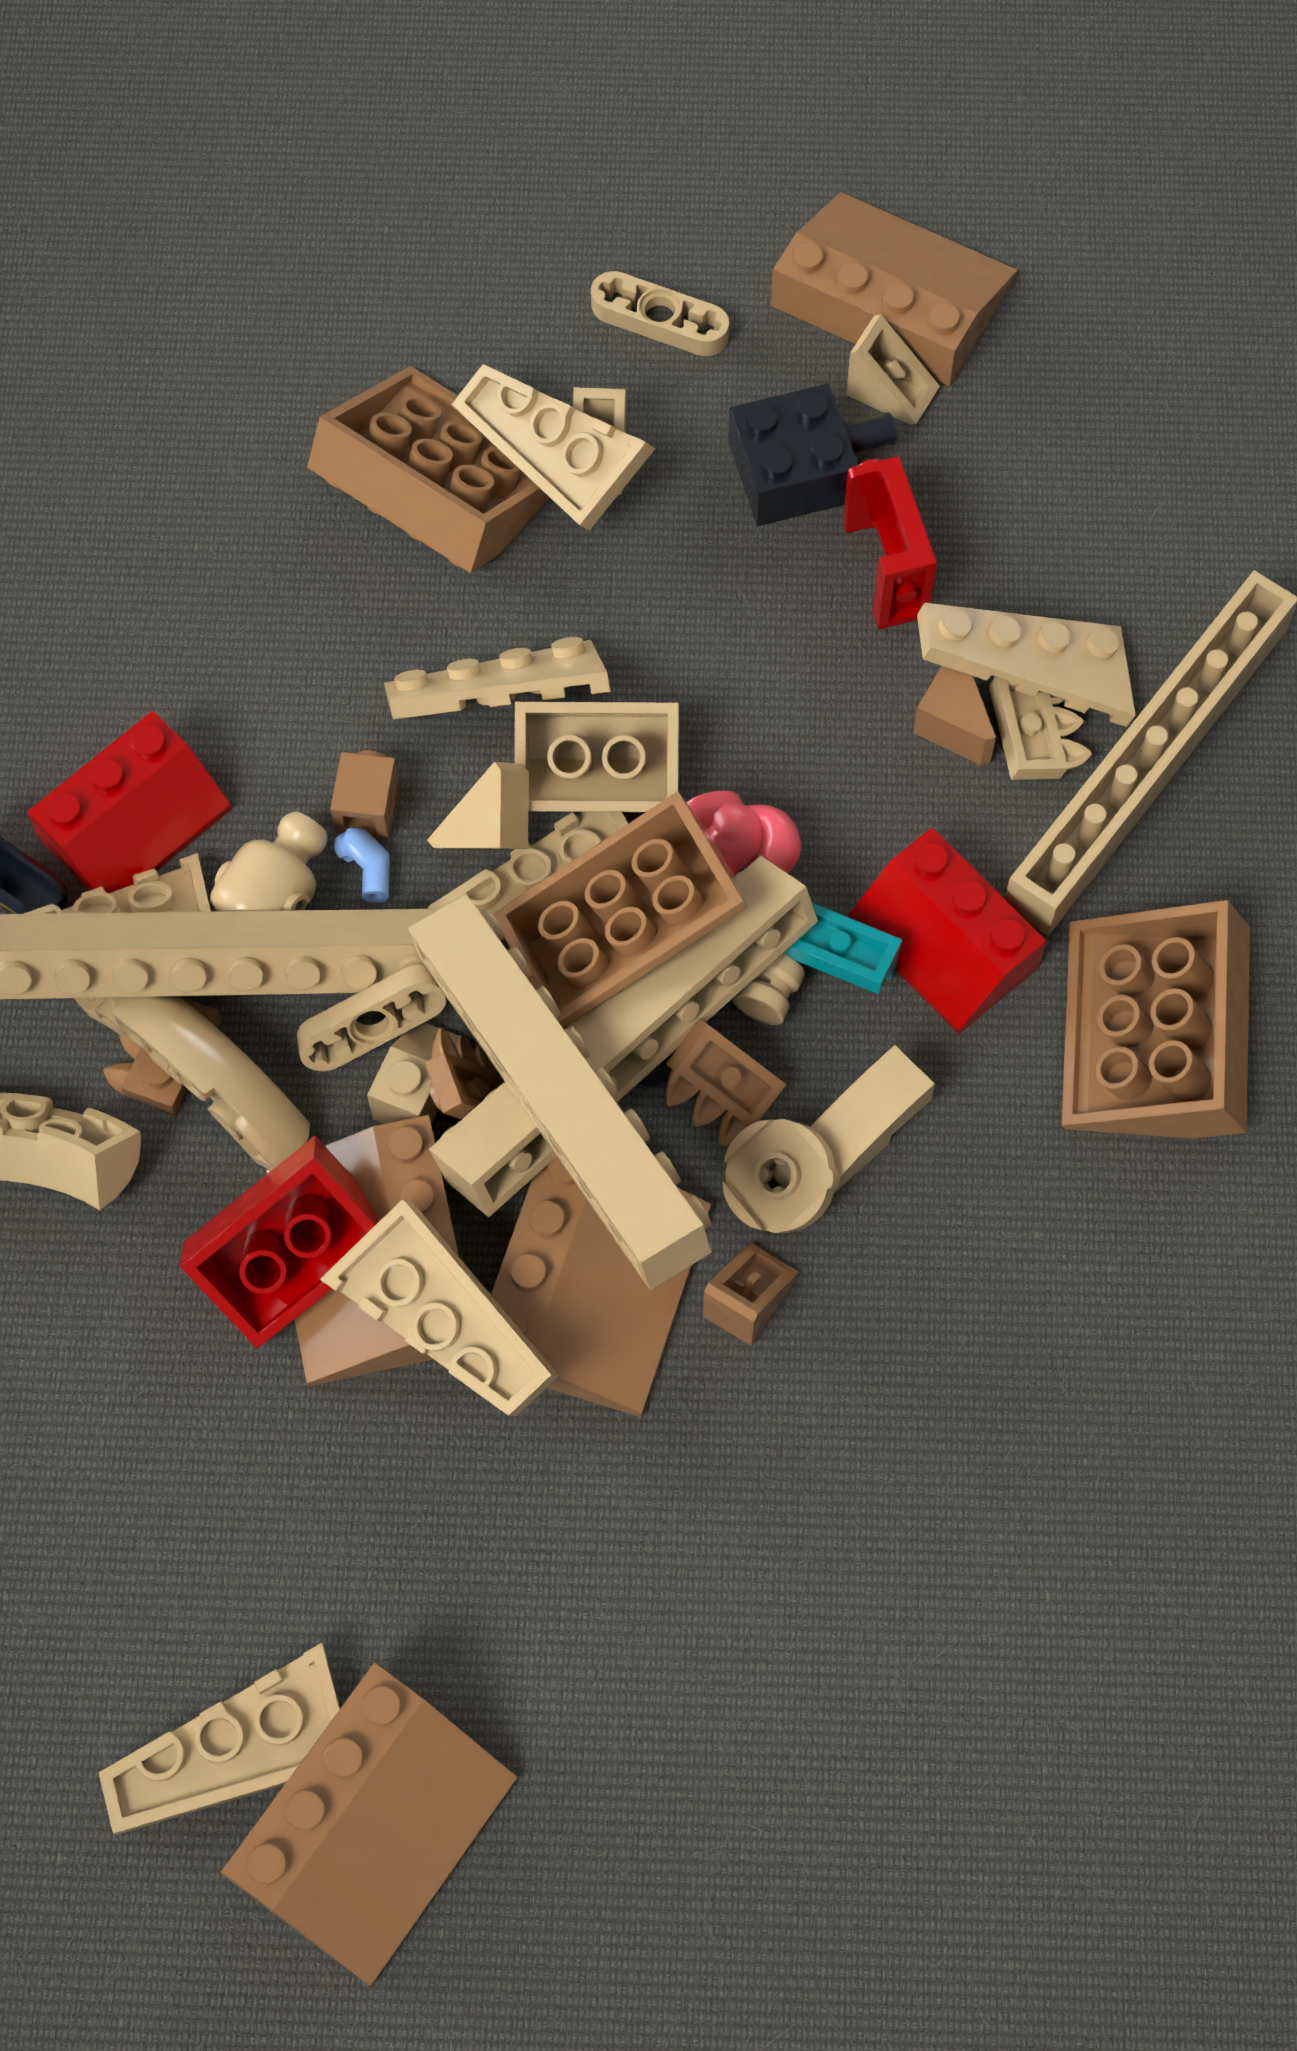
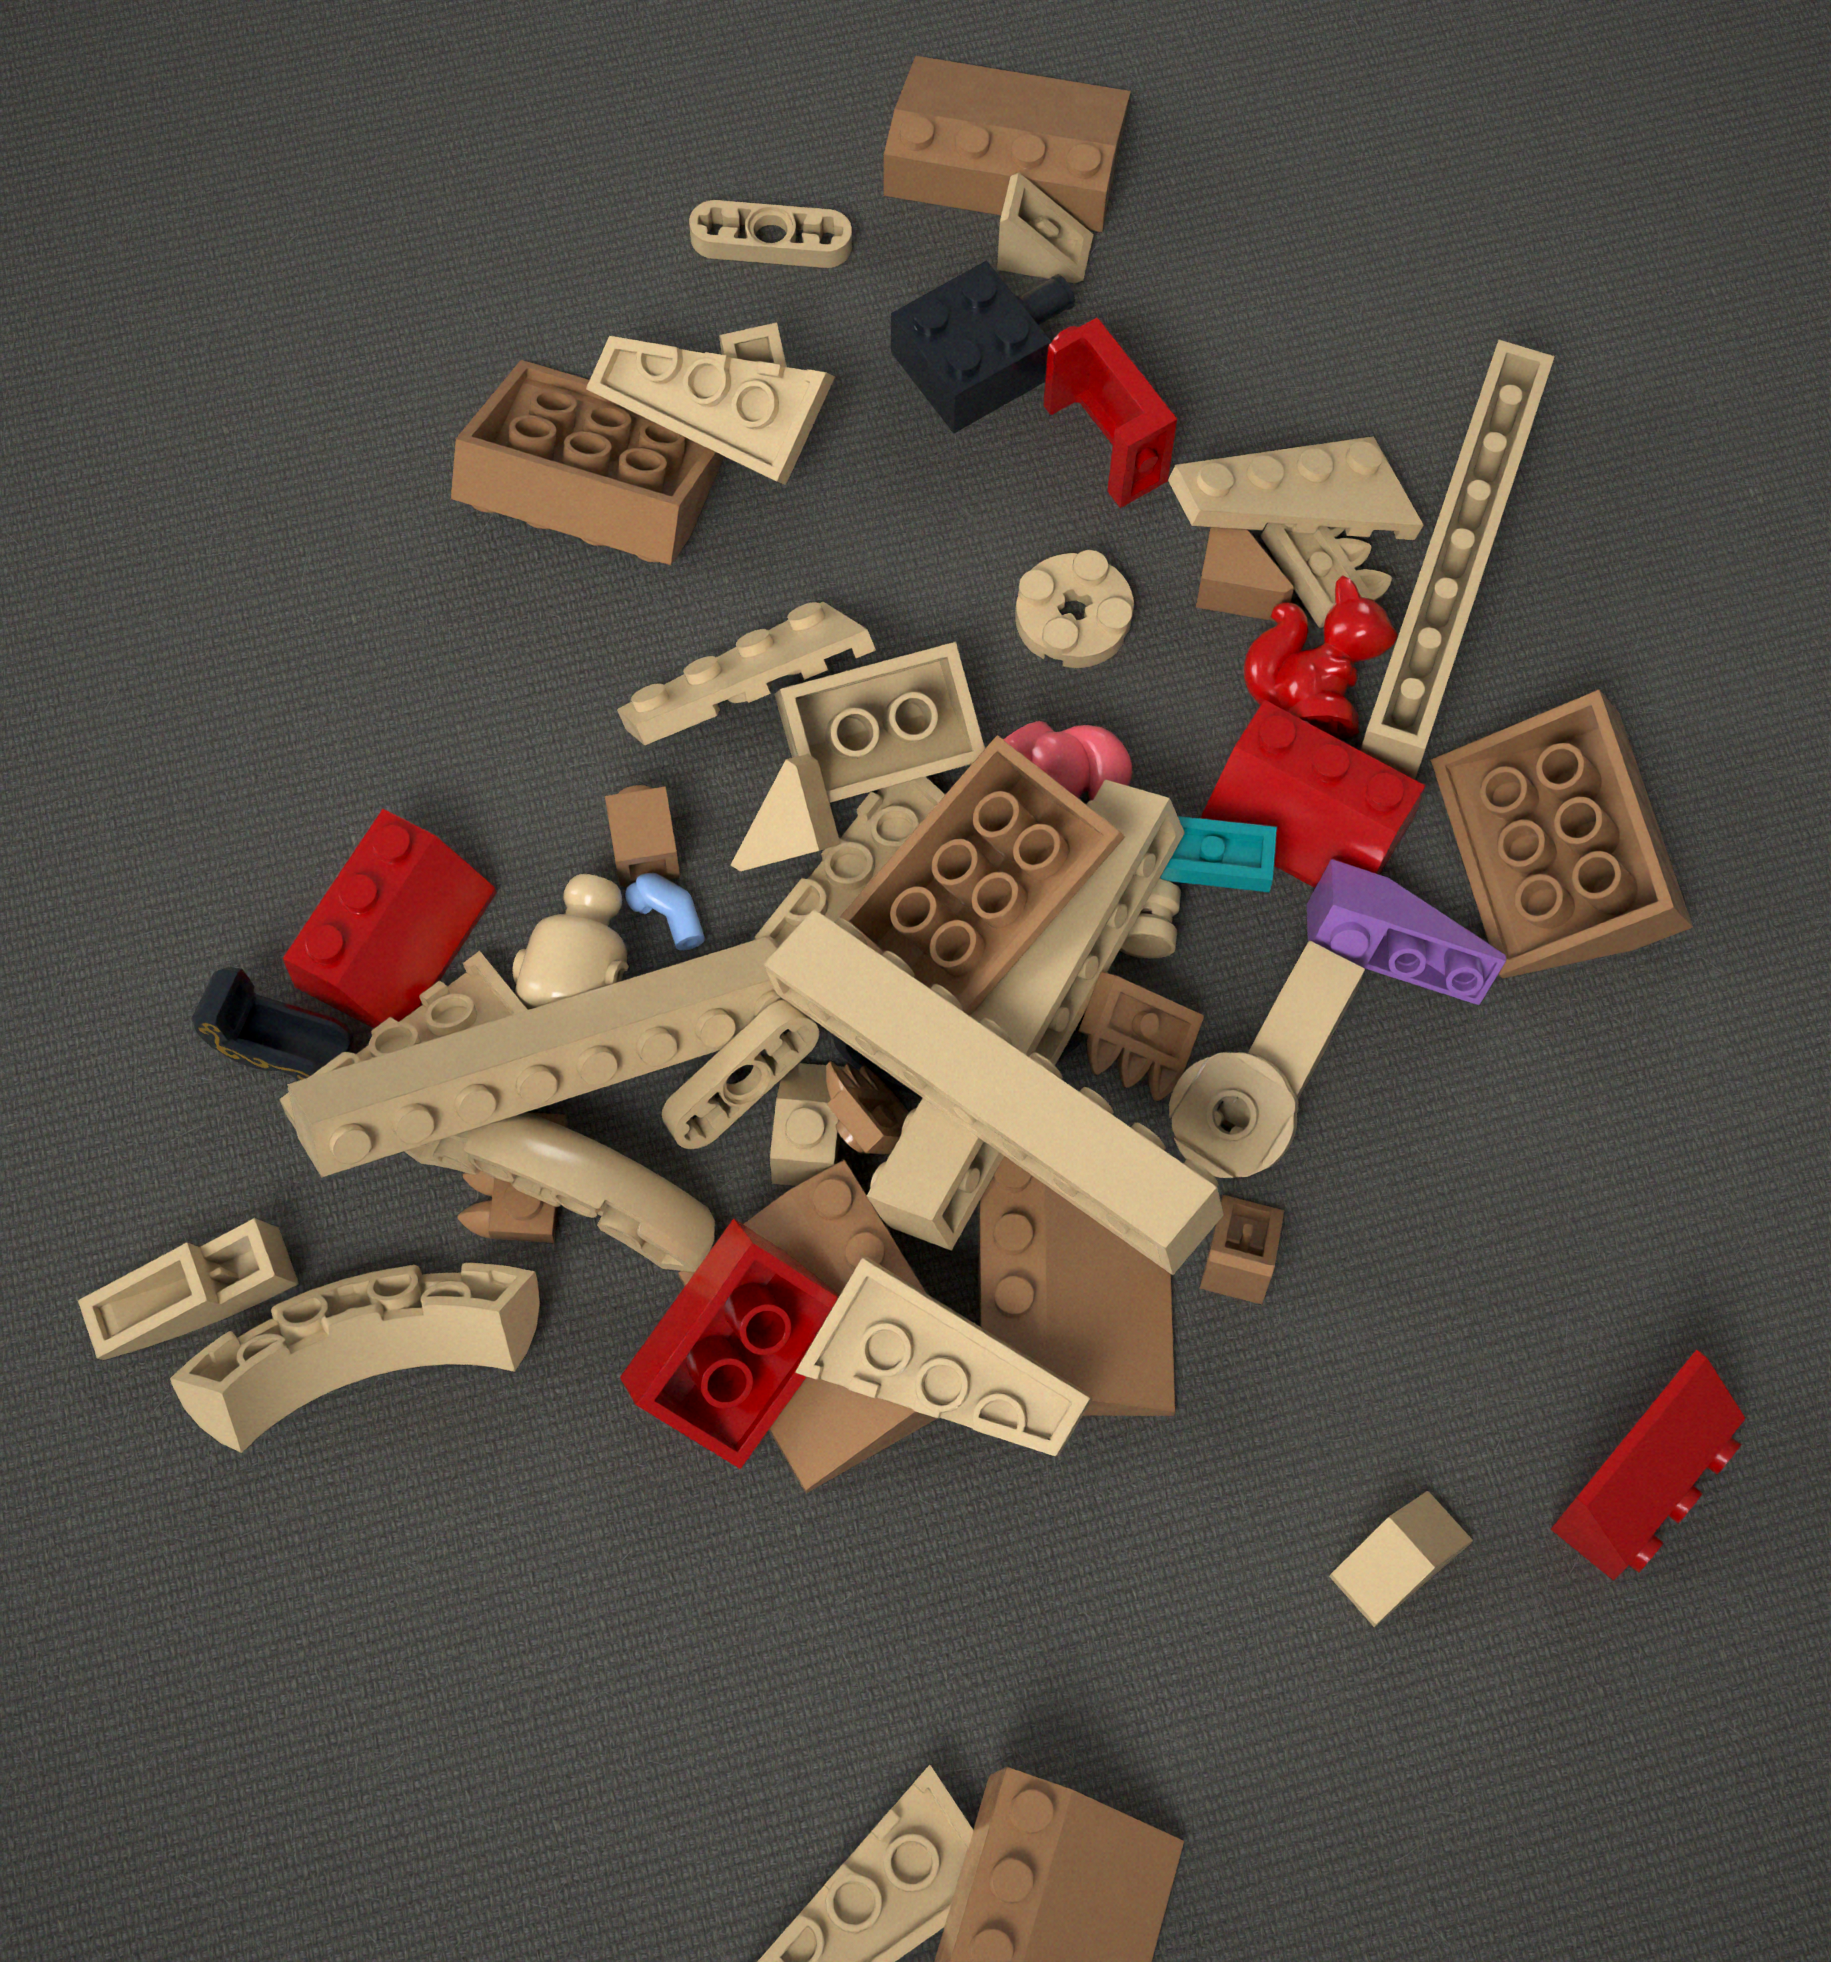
camera: 20 degrees left, 0 degrees up
(790, 1596) = (1400, 1557): none -> tan slope
(808, 677) = (1078, 578): none -> tan plate
(978, 1061) = (1398, 934): none -> medium lavender slope
(985, 824) = (1315, 680): none -> red animal
(1033, 1589) = (1654, 1471): none -> red slope

